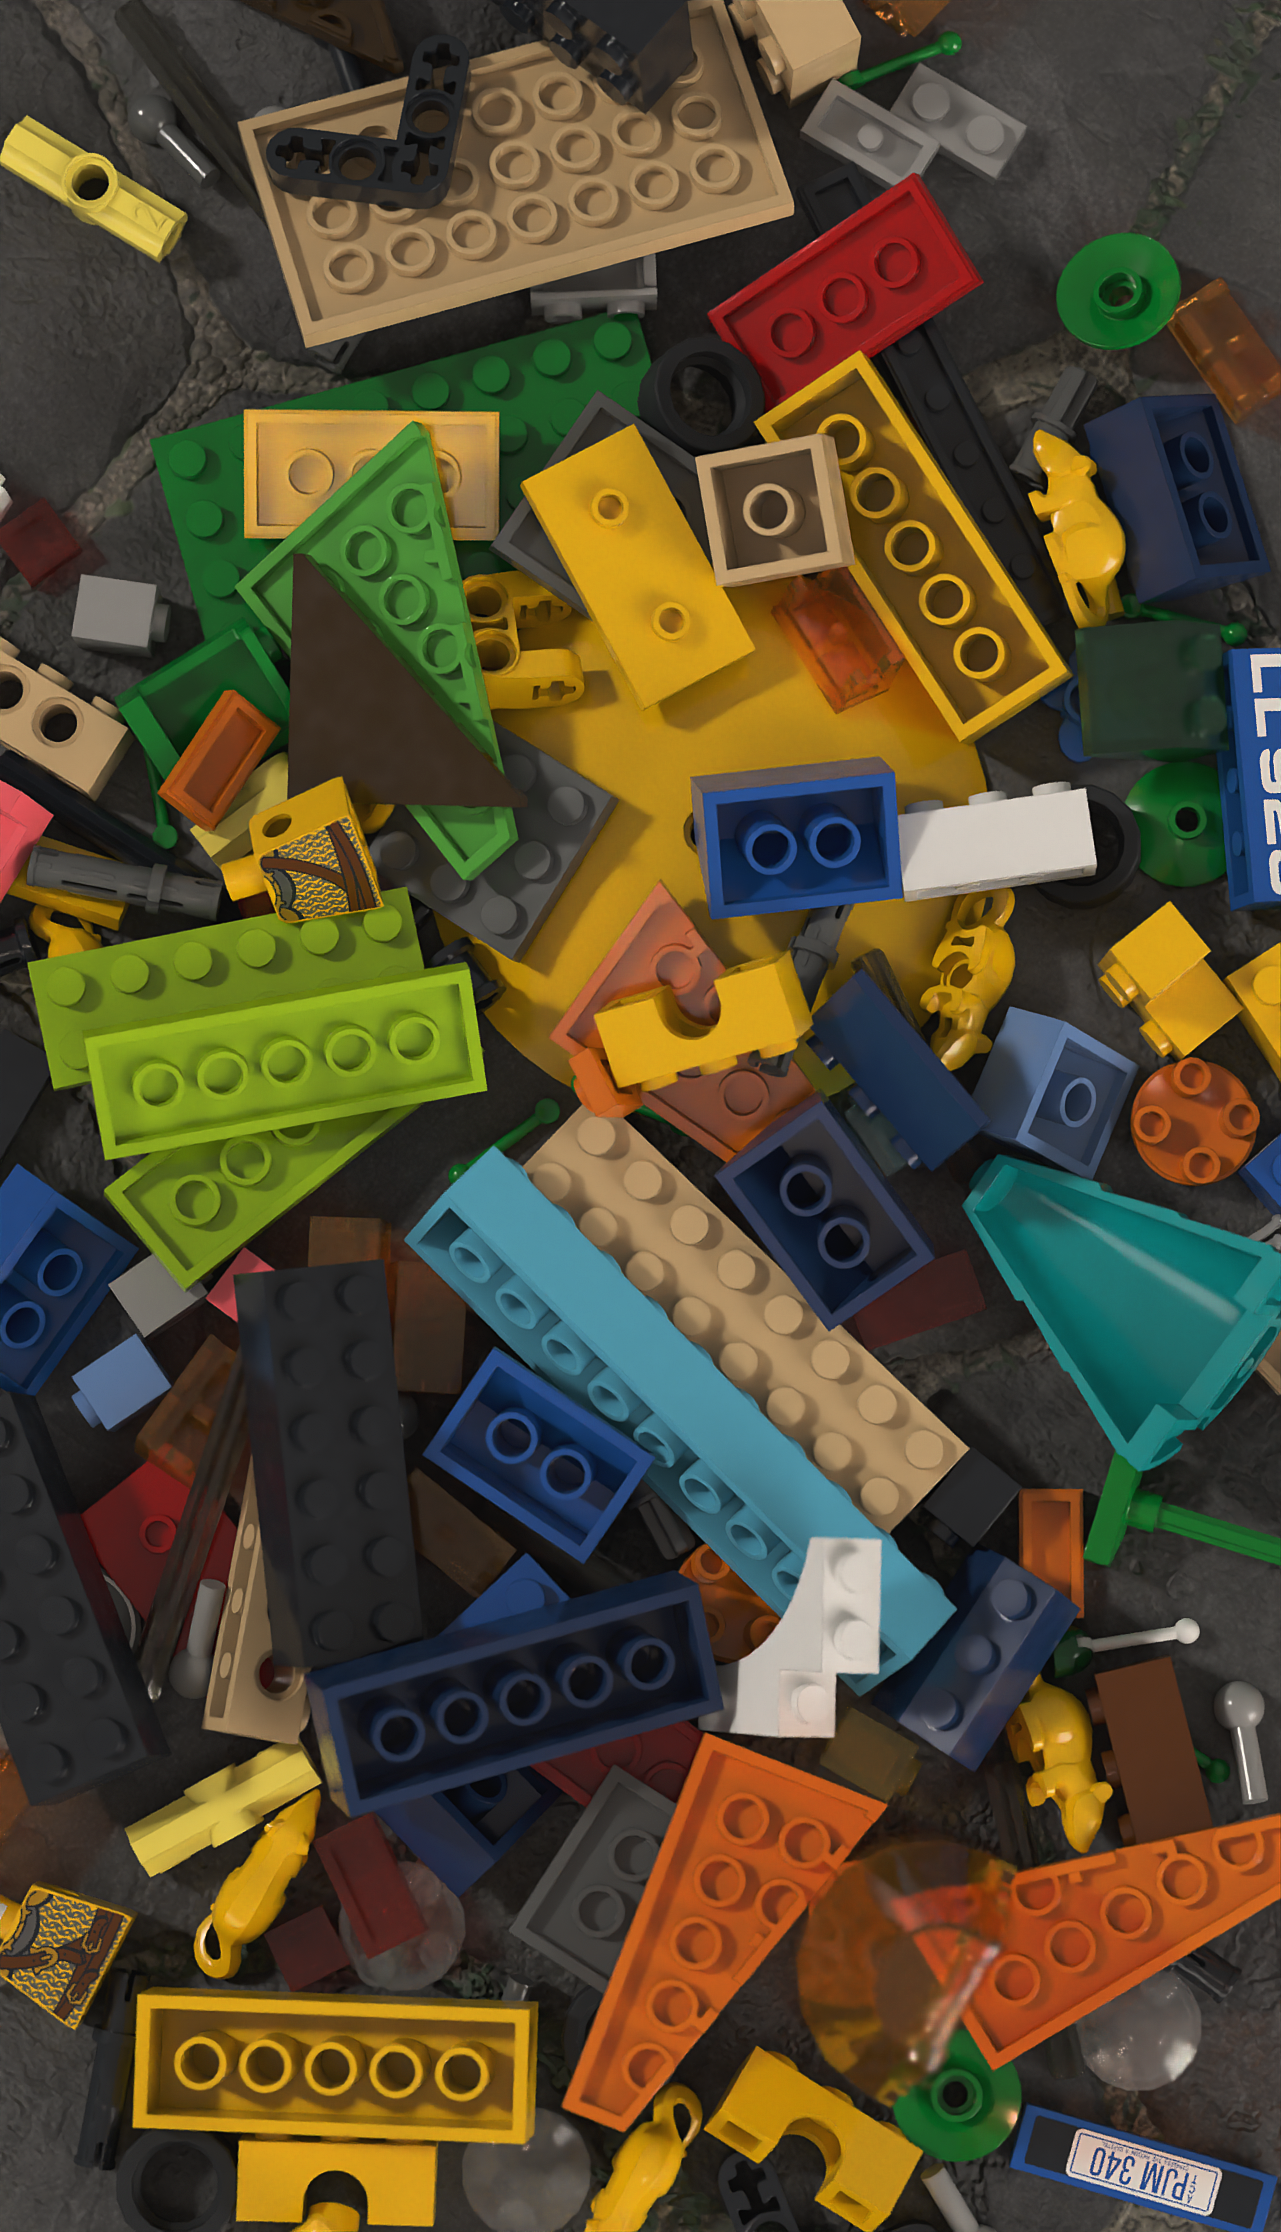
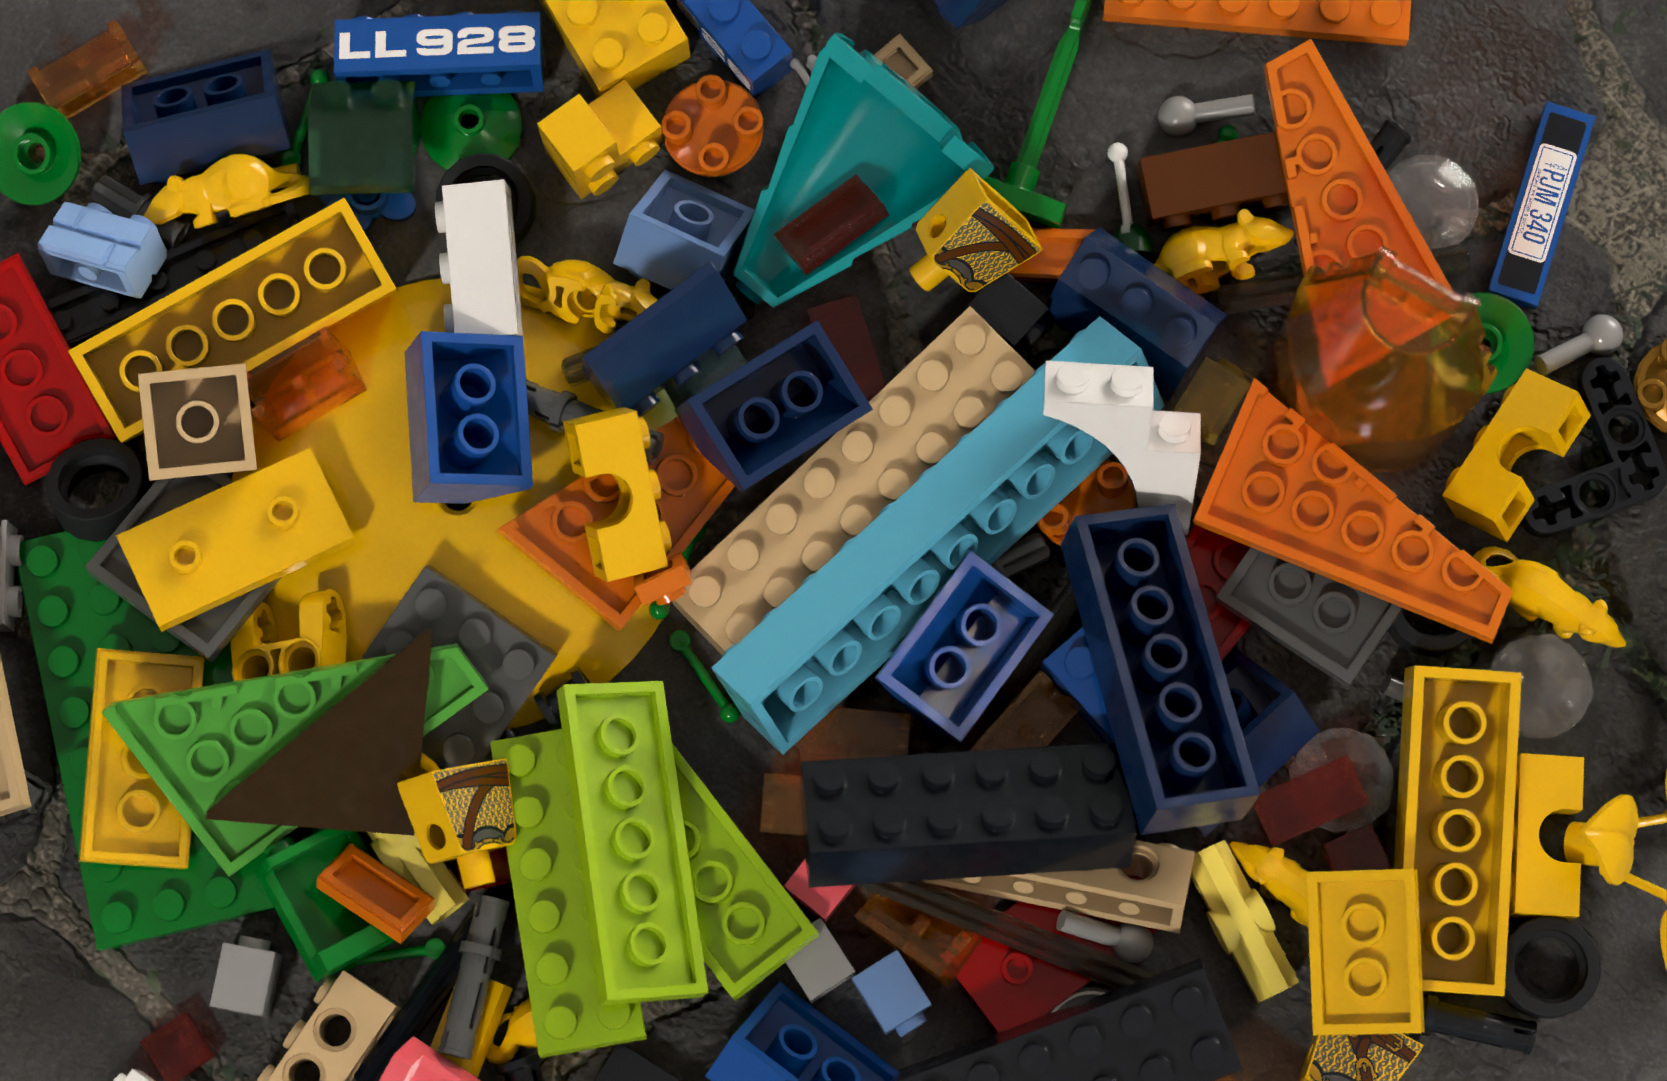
camera: 85 degrees left, 5 degrees down
(178, 1954) = (1365, 952): none -> yellow plate
(999, 385) = (103, 248): none -> light blue brick
(1055, 1449) = (972, 237): none -> torso
(1069, 1273) = (831, 224): none -> clear red tile

